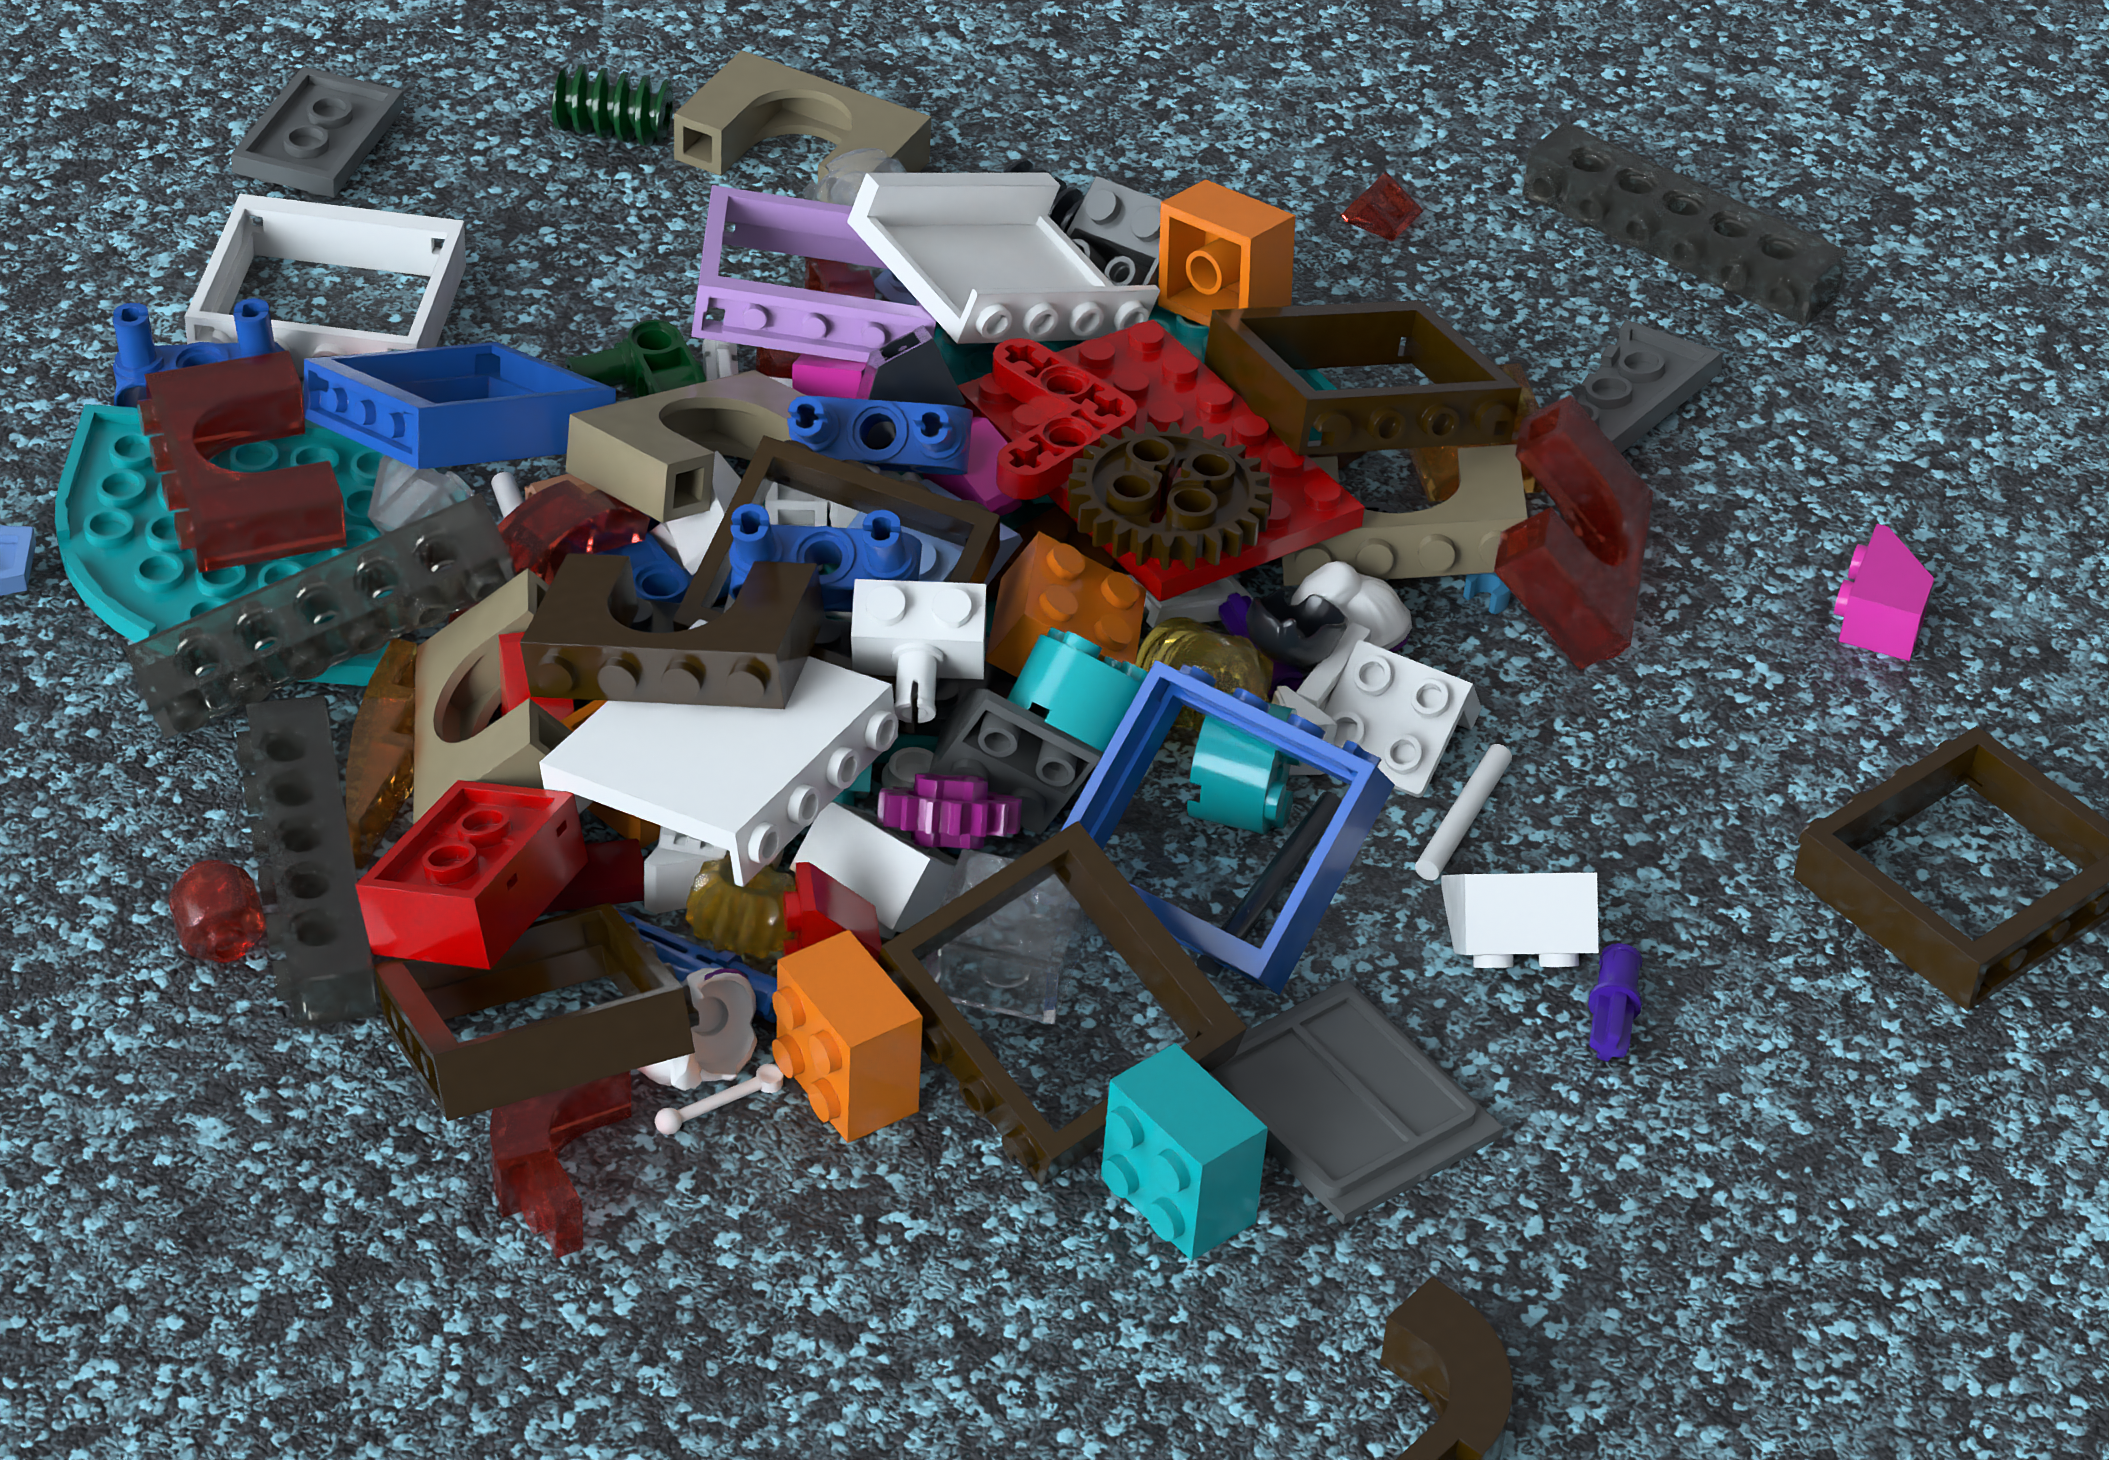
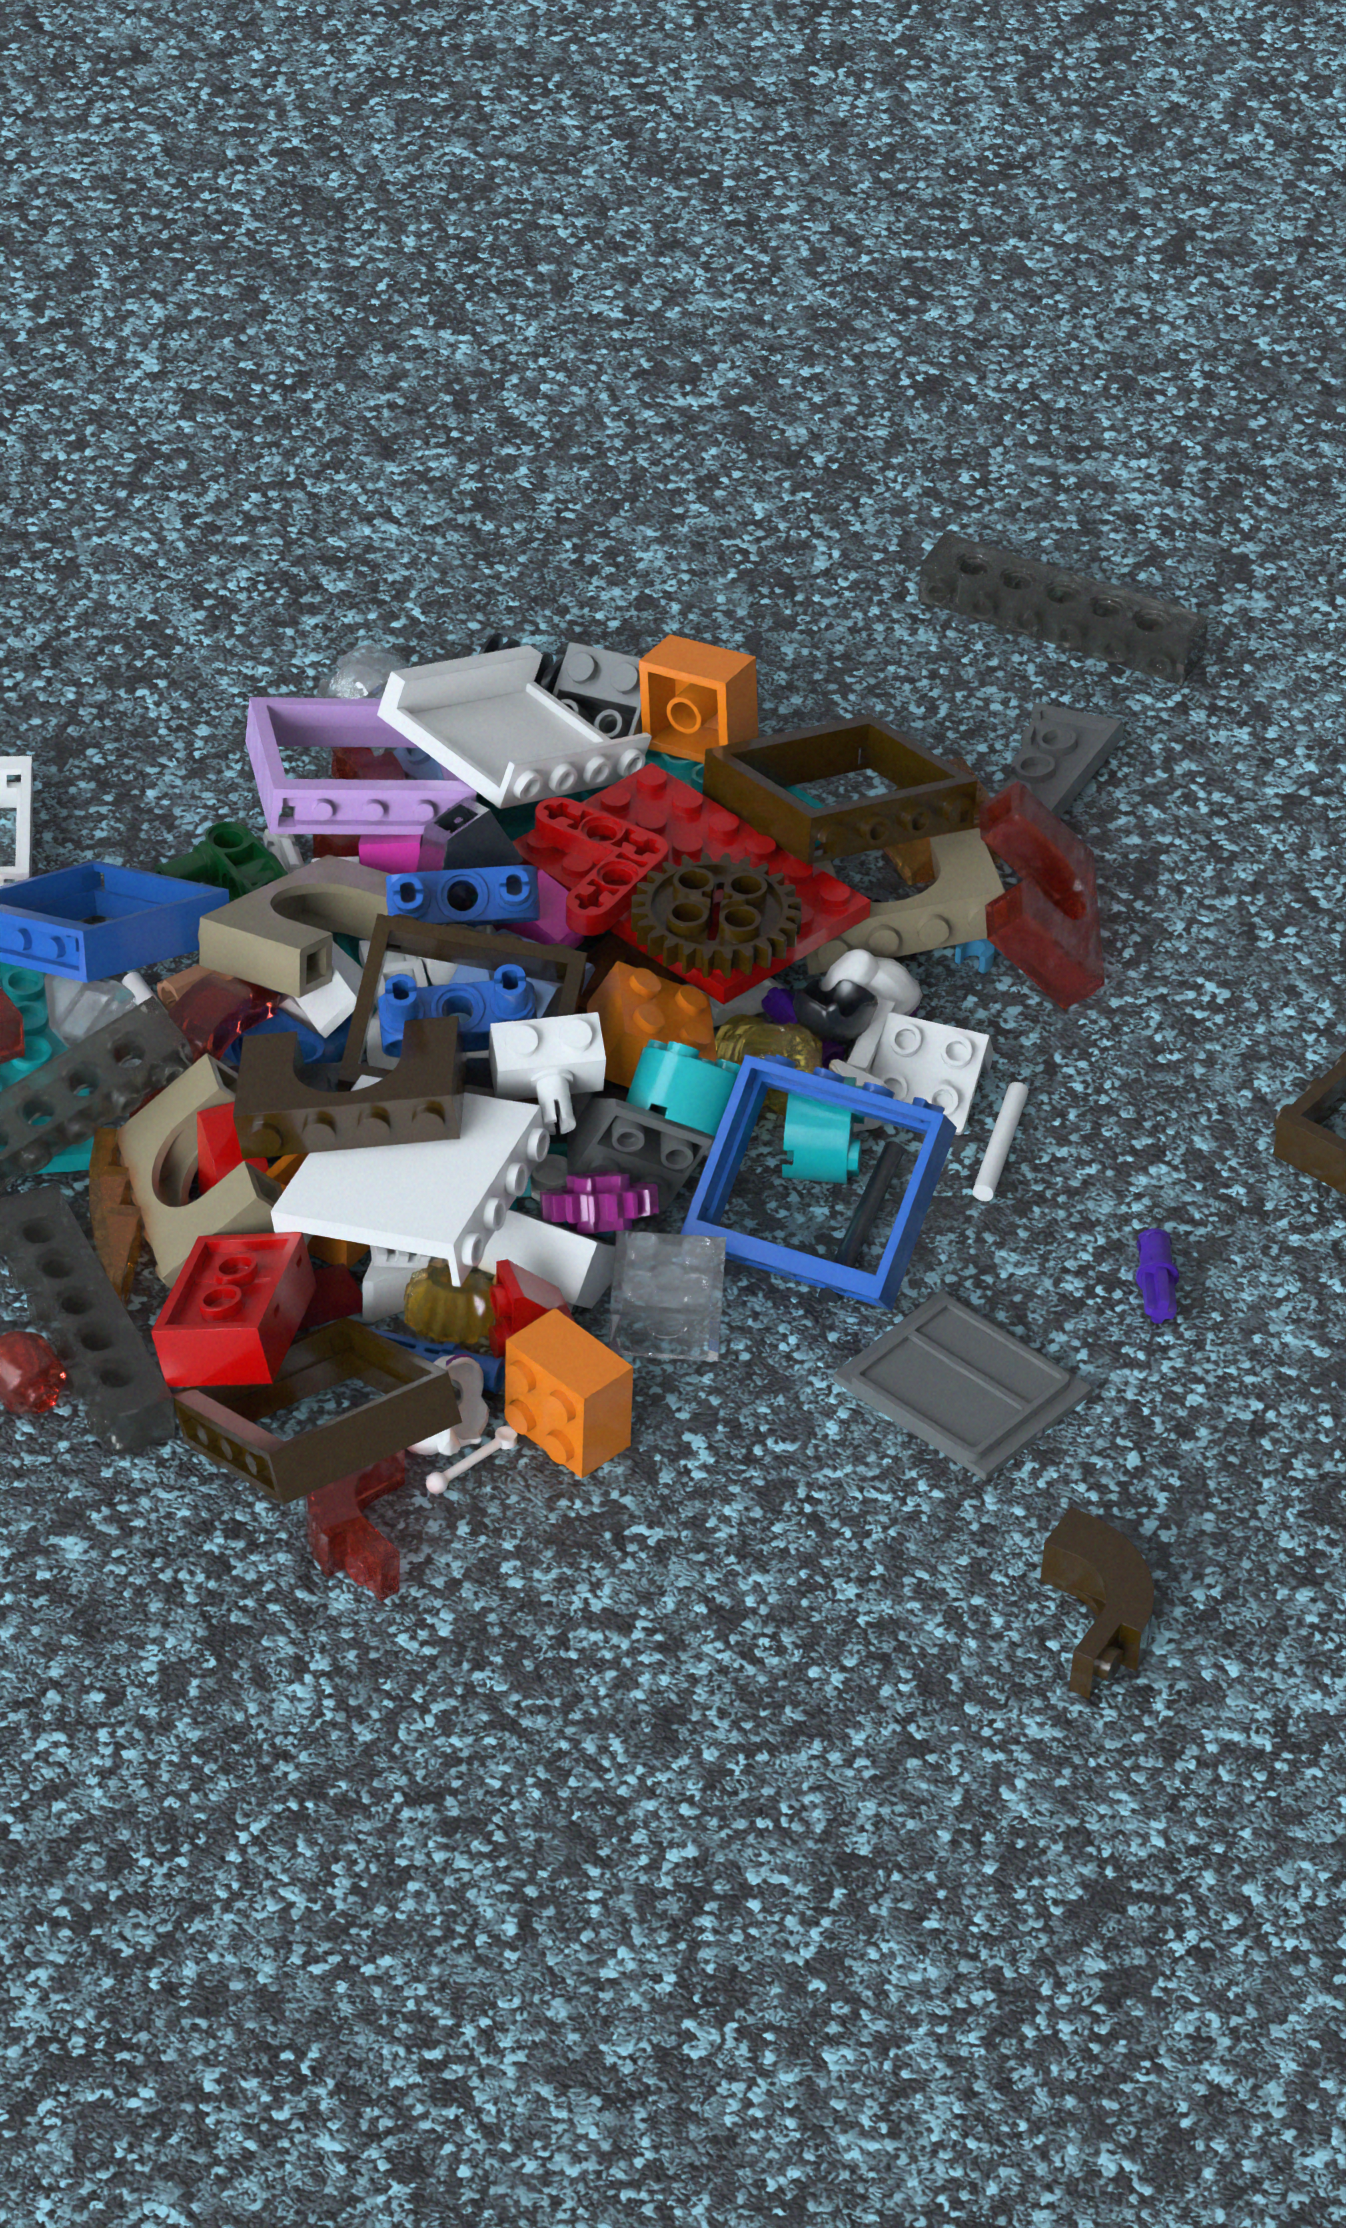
camera: 10 degrees left, 0 degrees up
(612, 107) = (120, 631): dark green piece -> none
(768, 99) = (250, 605): dark tan arch -> none
(1132, 931) = (784, 1285): dark brown window -> none
(1183, 1151) = (855, 1441): teal brick -> none
(1383, 209) = (805, 631): clear red slope -> none
(1522, 915) = (1068, 1218): white slope -> none
(1887, 599) = (1302, 913): dark pink slope -> none

